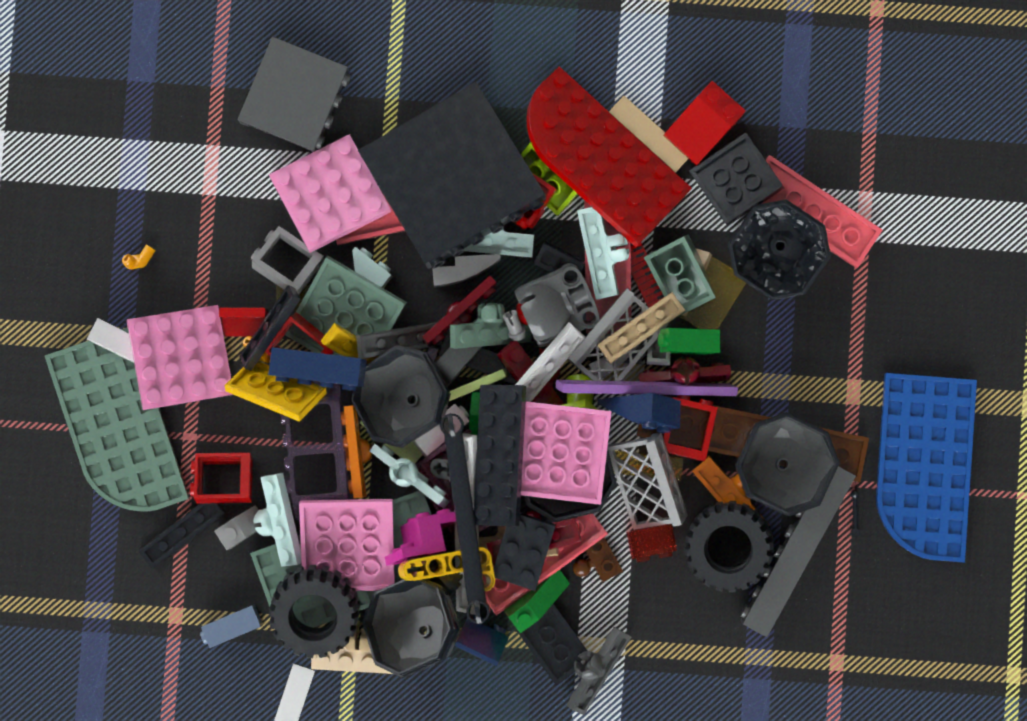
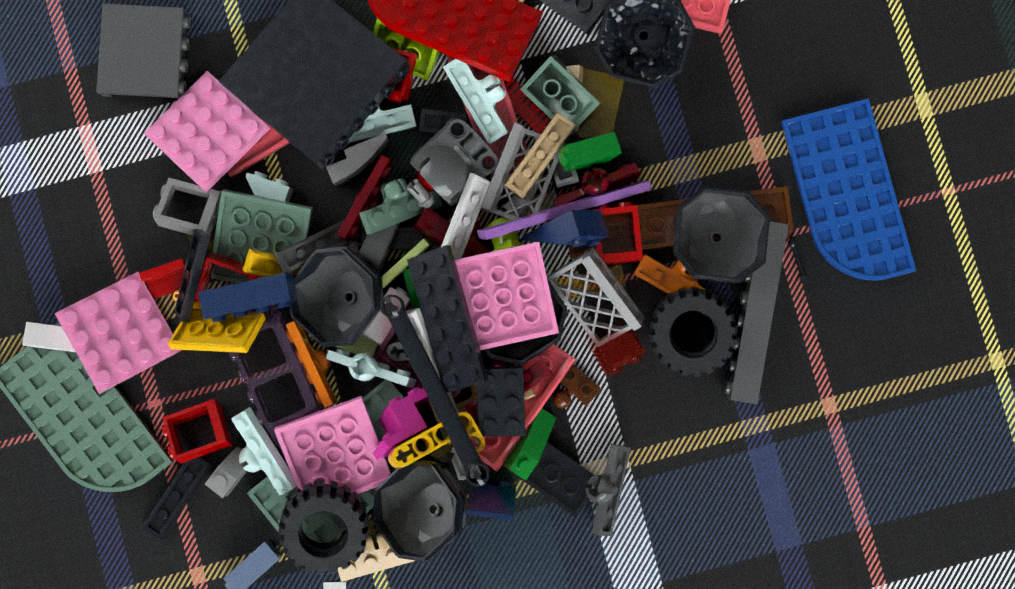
camera: 15 degrees left, 0 degrees up
(139, 260) = (49, 256): light orange arm -> none

